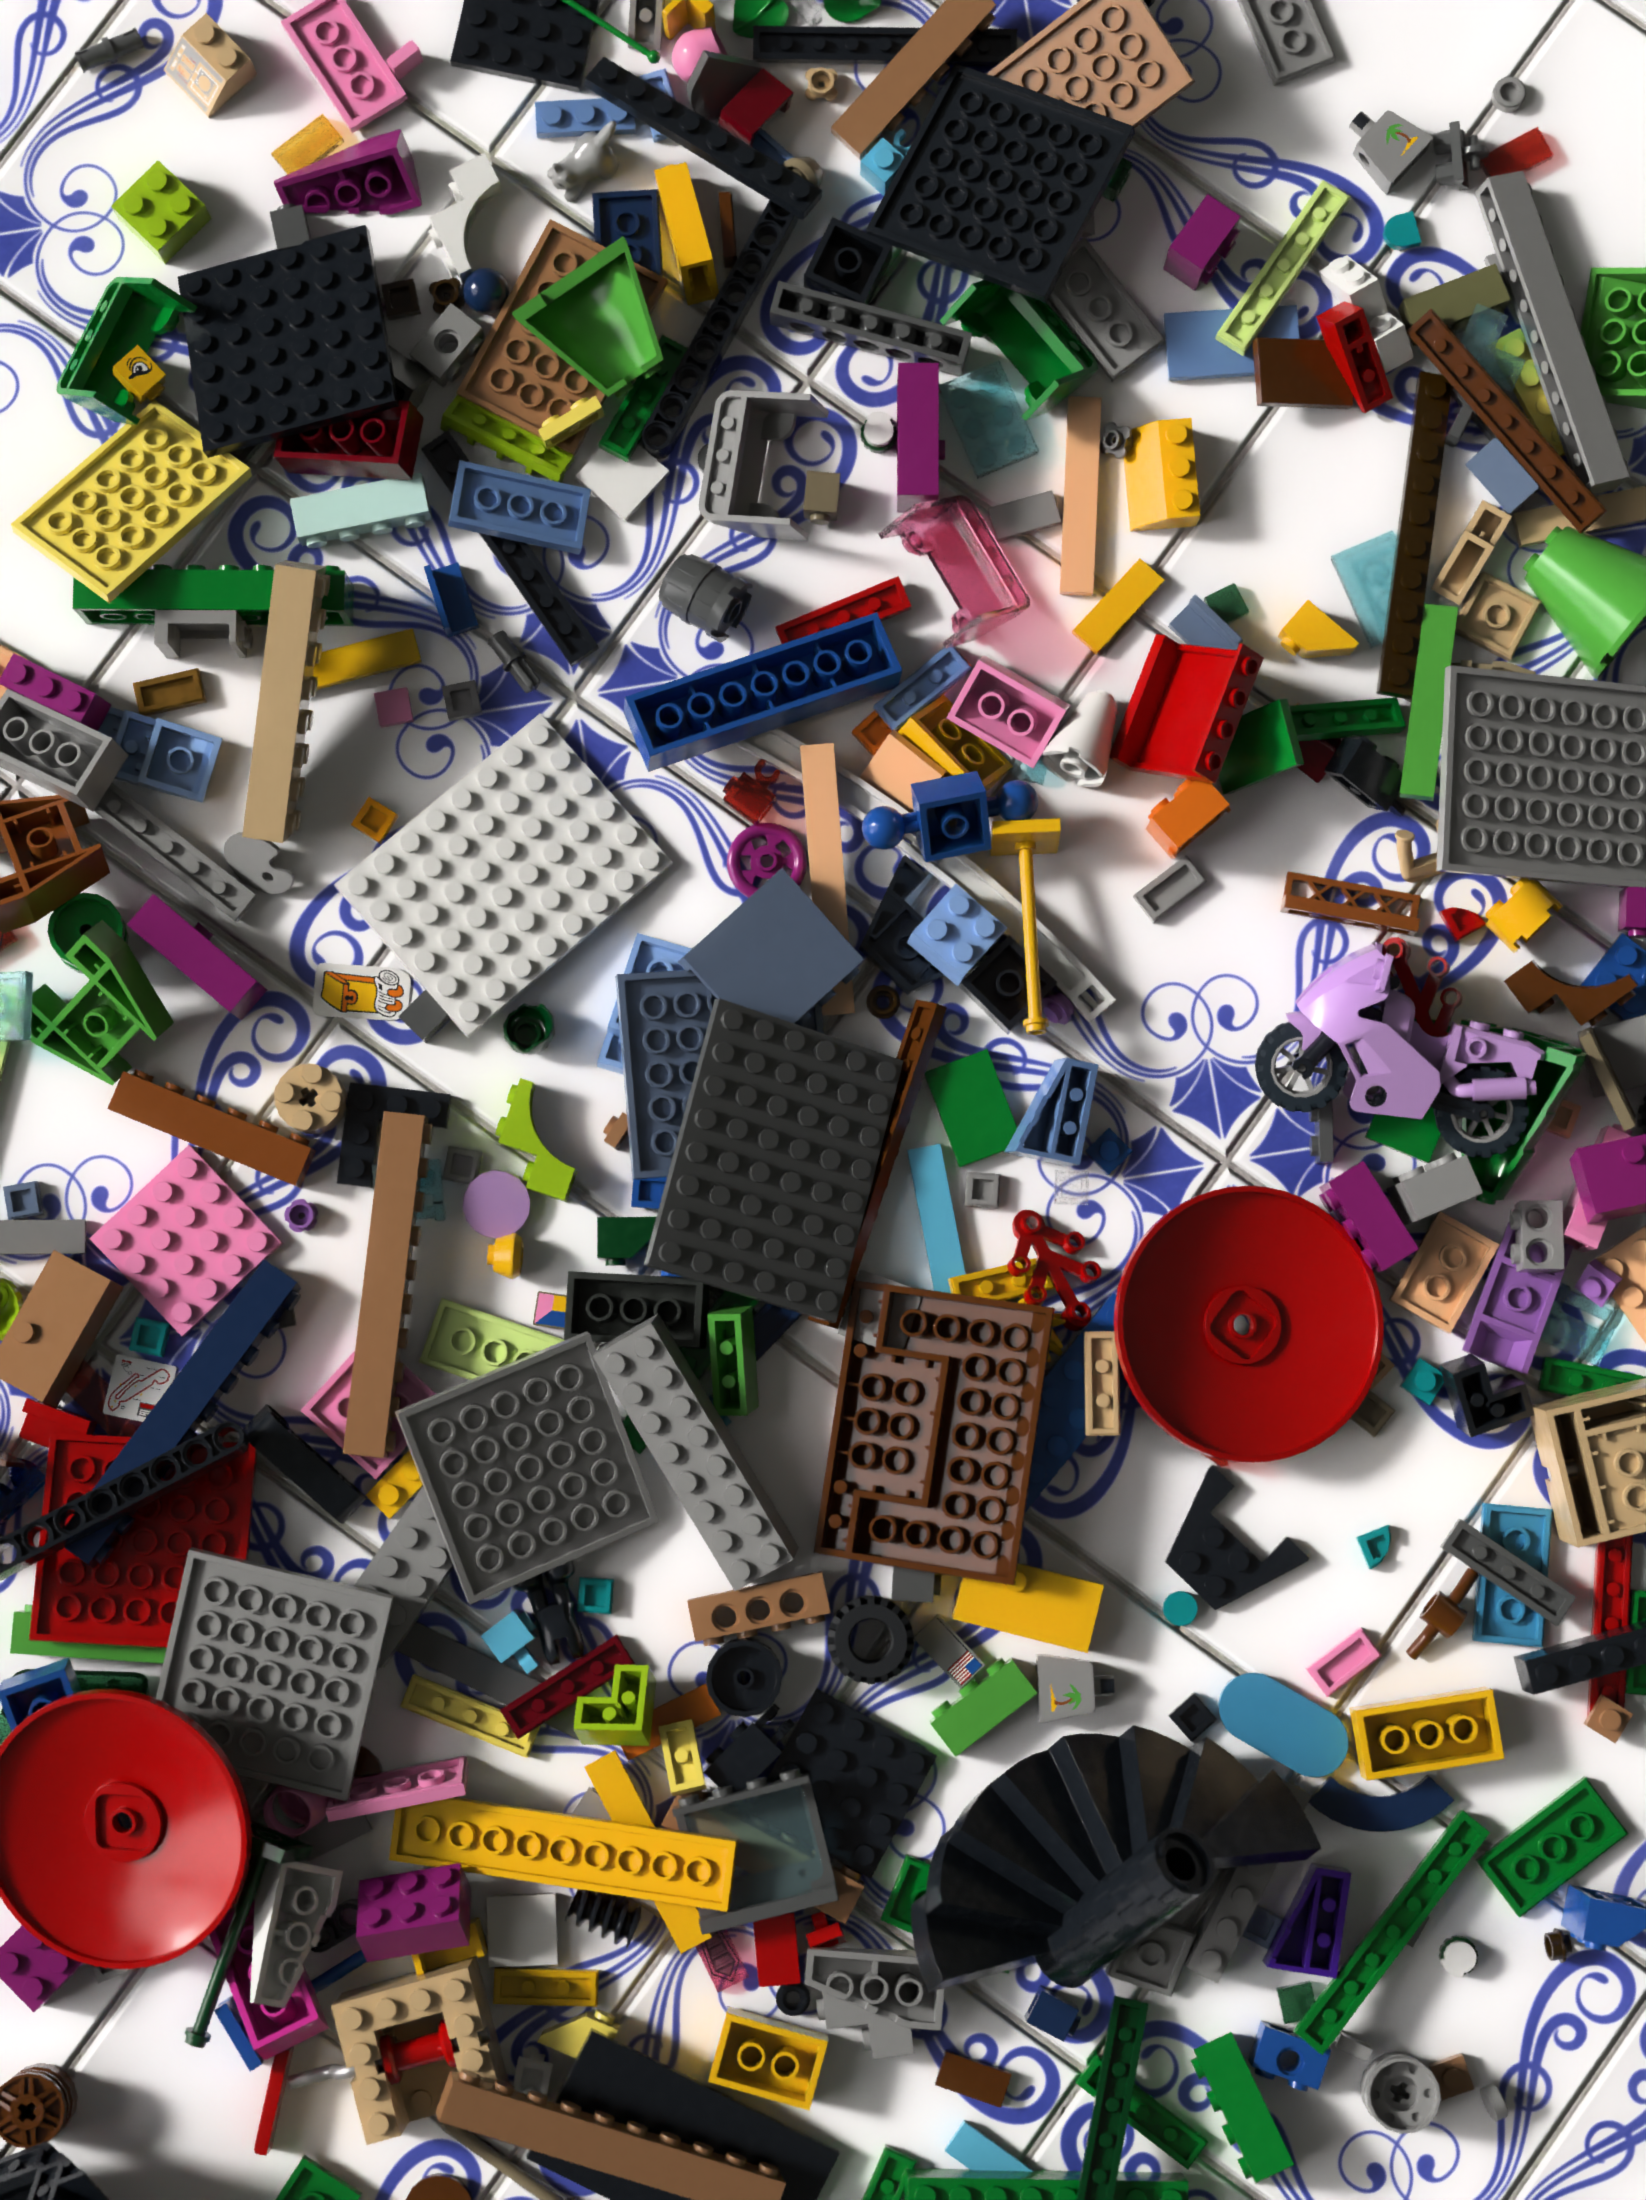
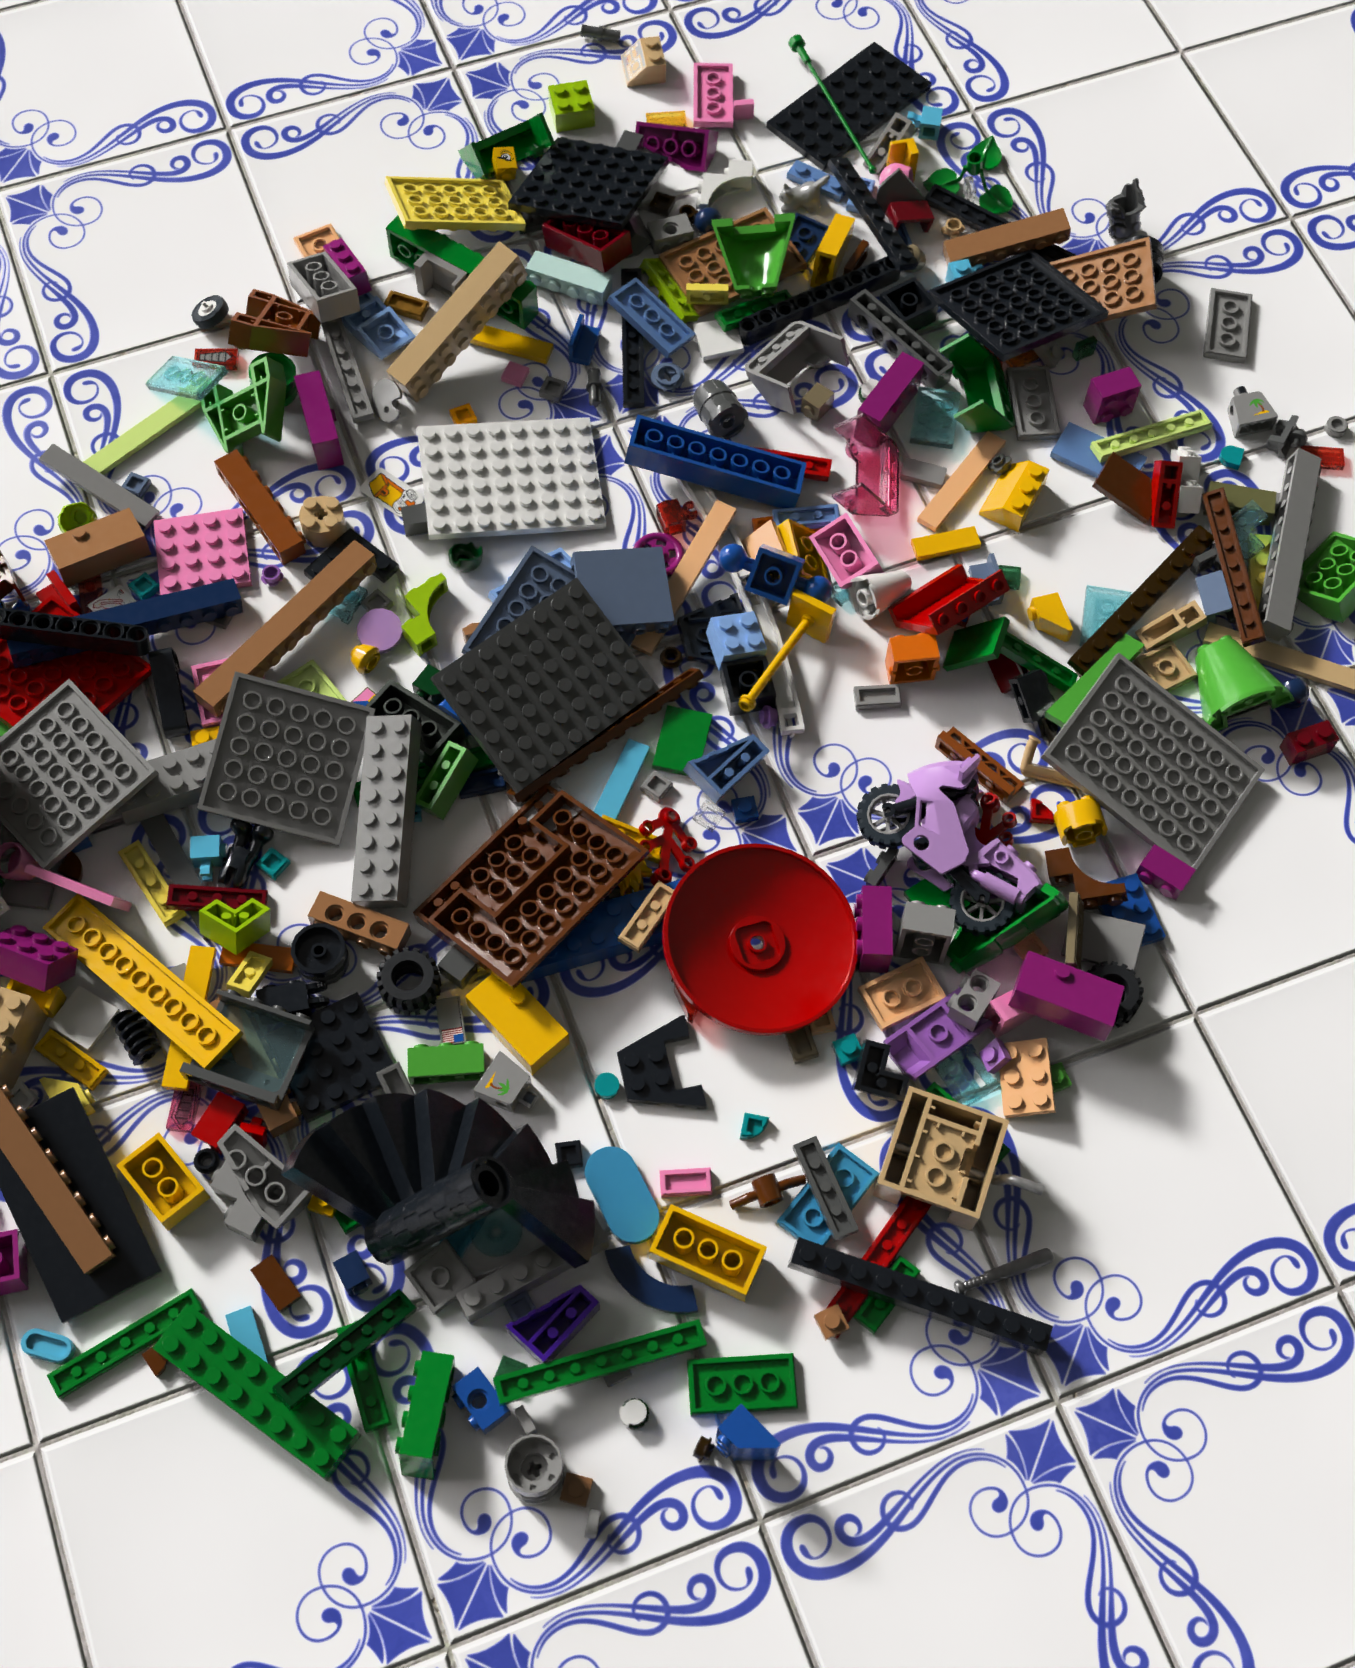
camera: 30 degrees right, 20 degrees down
(596, 566) = (672, 371): none -> sand blue gear
(949, 1774) = (394, 1080): none -> light grey tile

